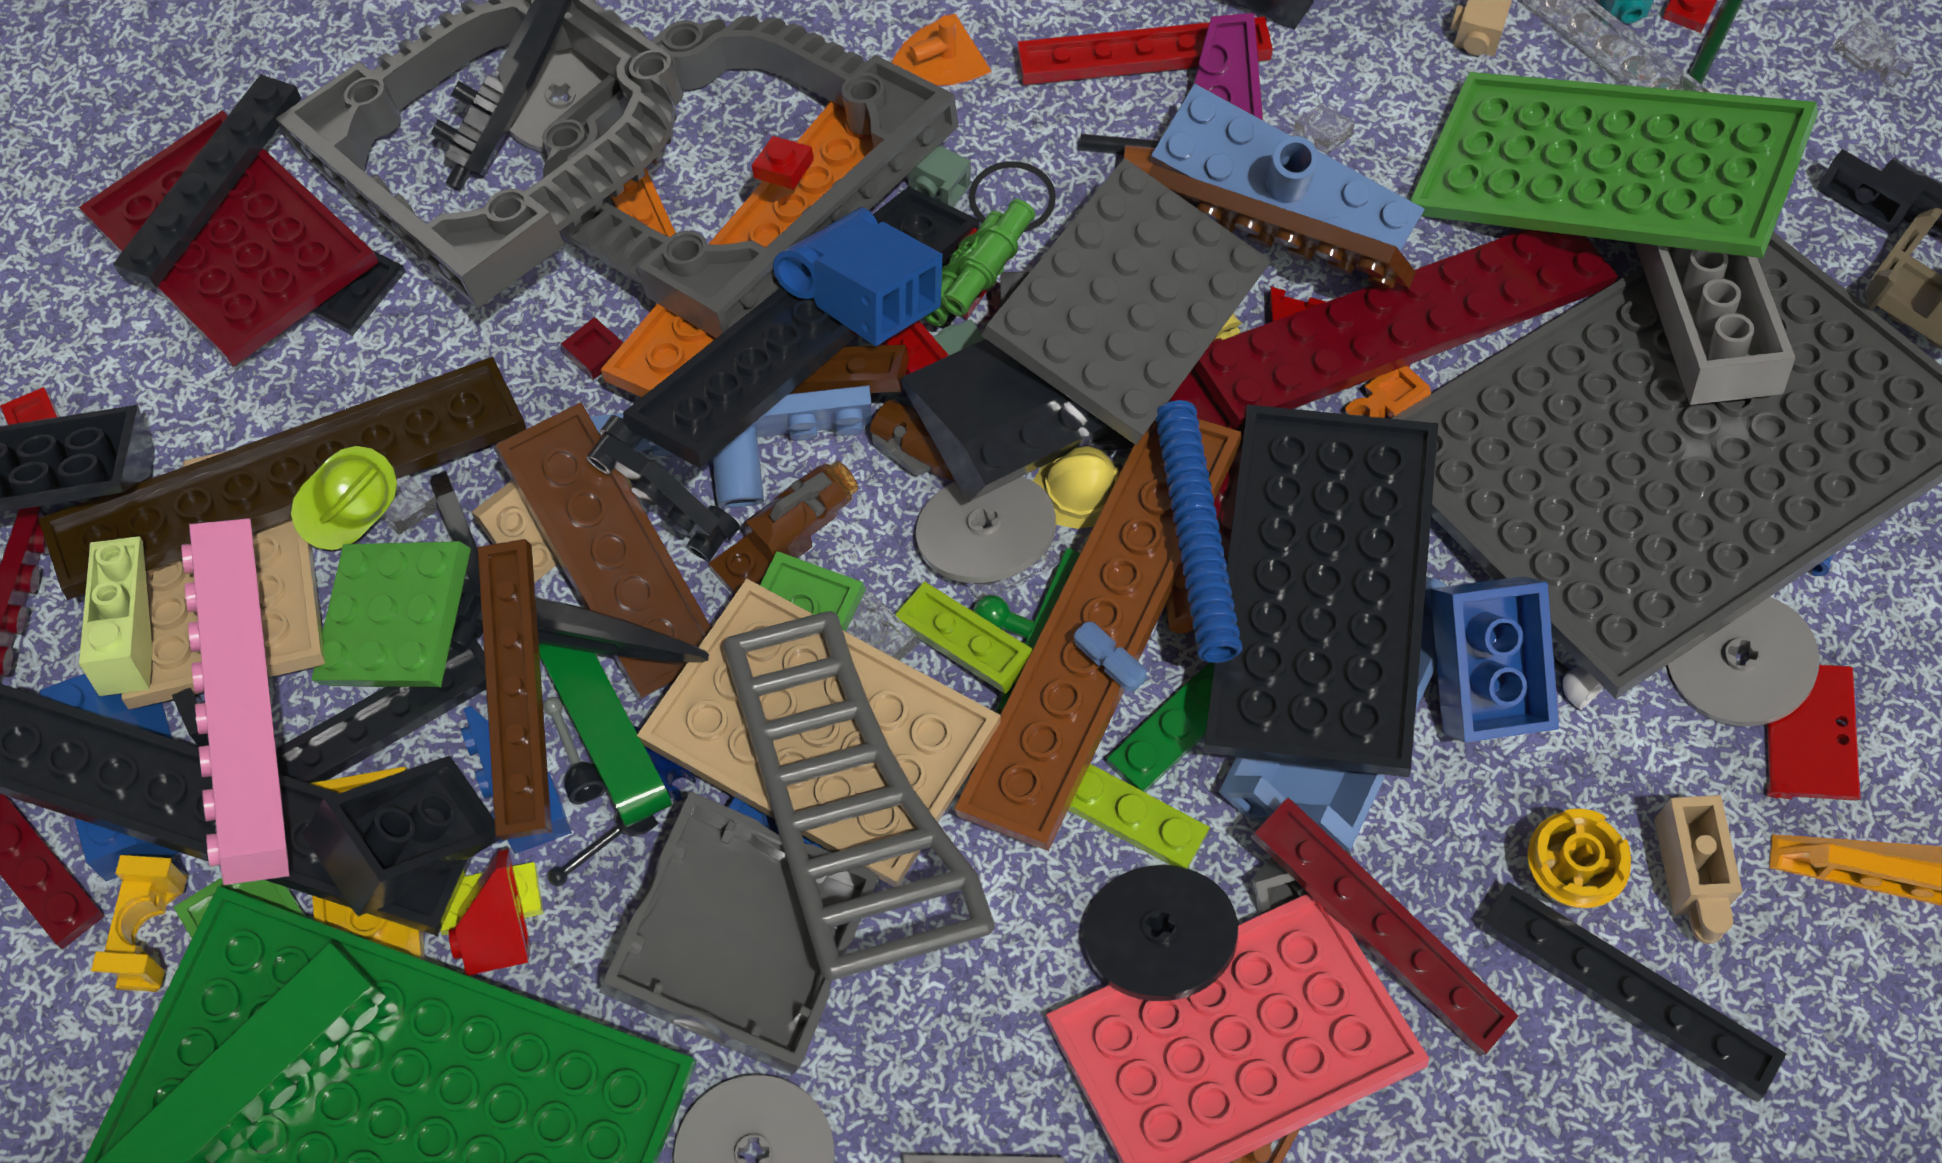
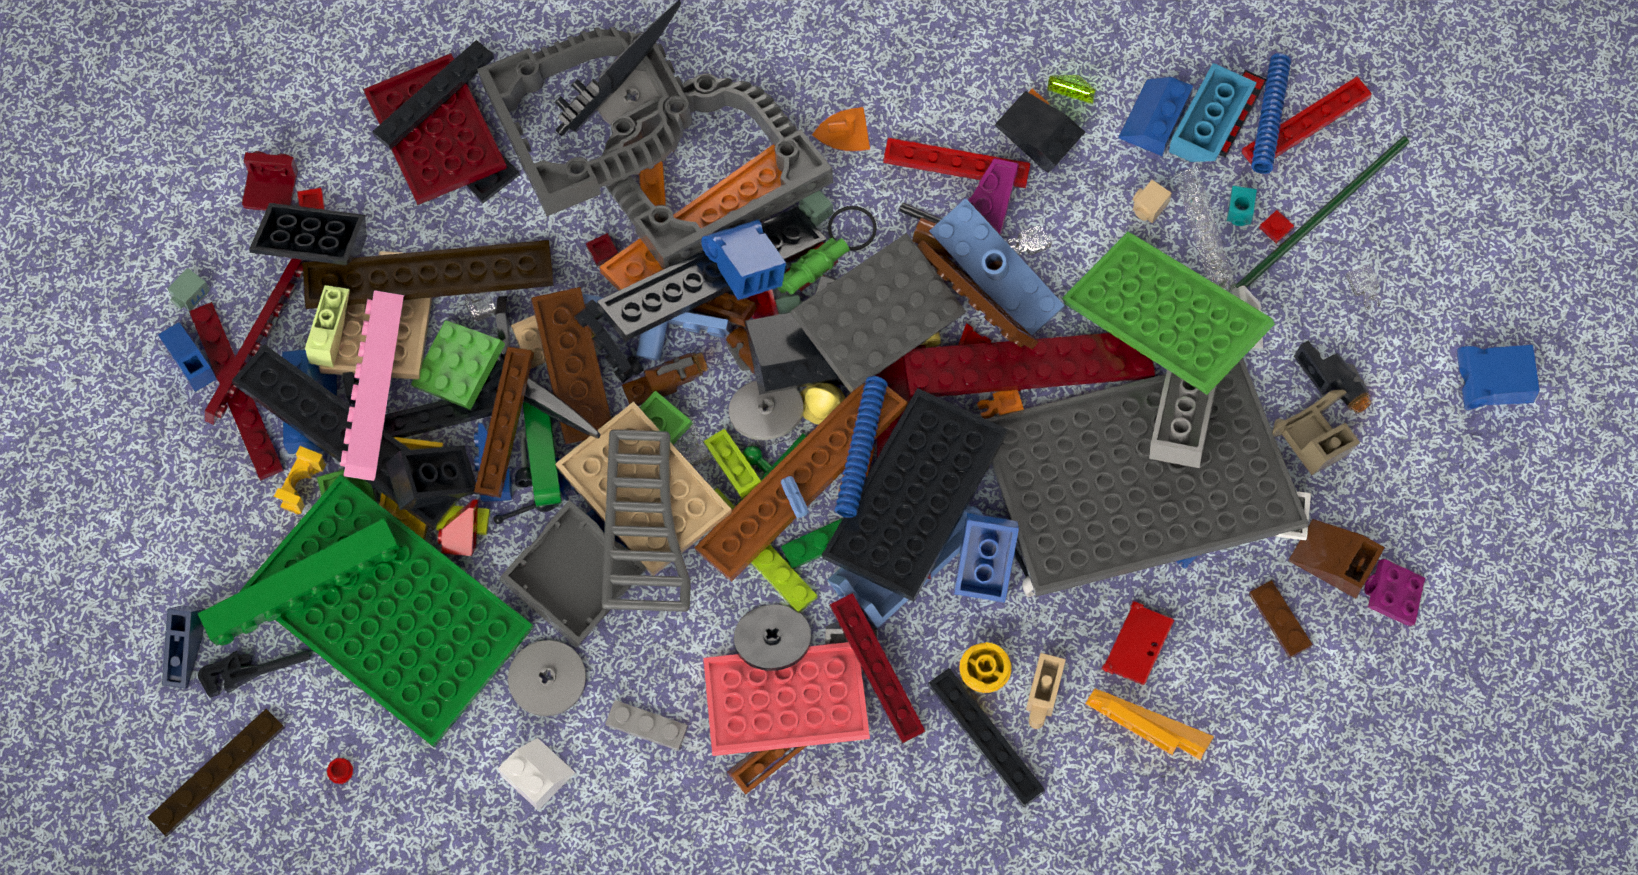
camera: 20 degrees right, 5 degrees up
(344, 498) = (452, 296): lime piece -> none
(782, 162) = (727, 182): red plate -> none
(1770, 685) = (1121, 615): light grey piece -> none

